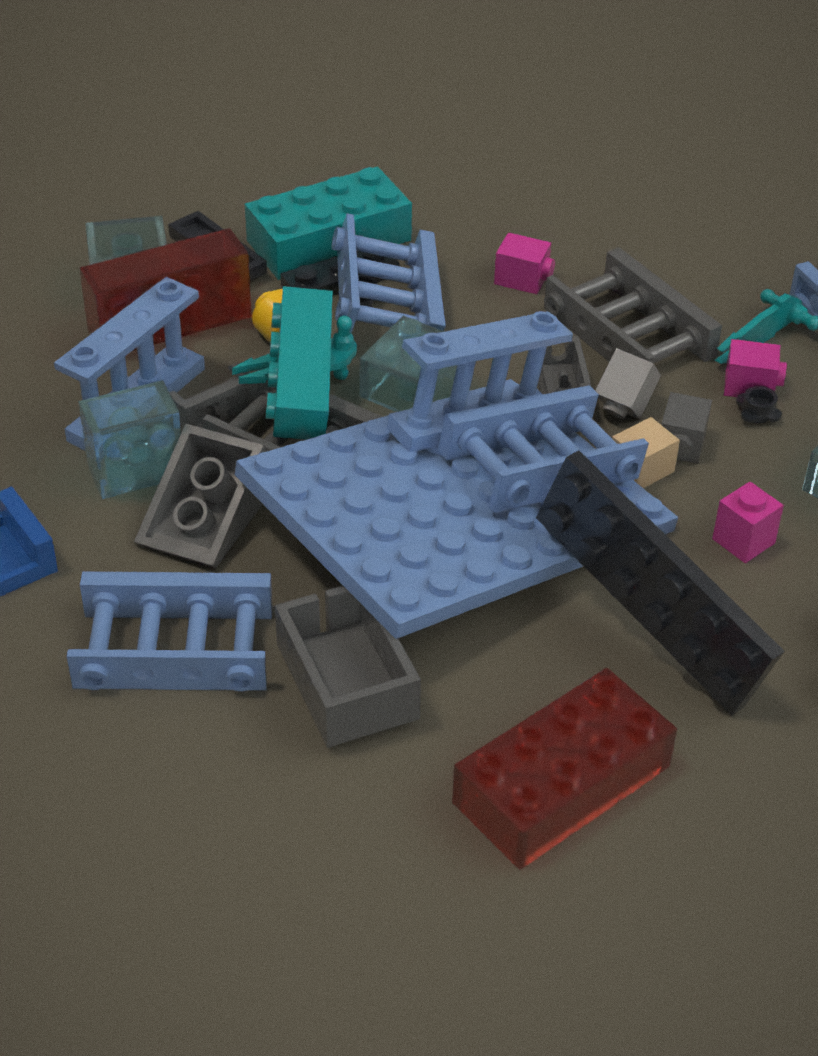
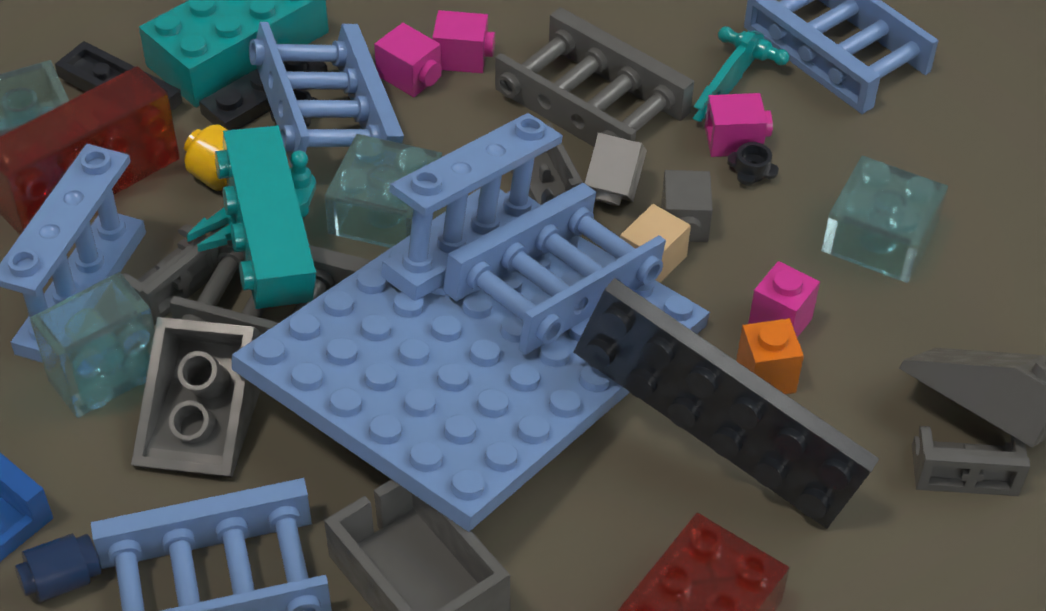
camera: 15 degrees left, 5 degrees up
(47, 604) = (58, 567): none -> dark blue brick
(471, 270) = (408, 59): none -> dark pink brick
(723, 557) = (772, 353): none -> orange brick

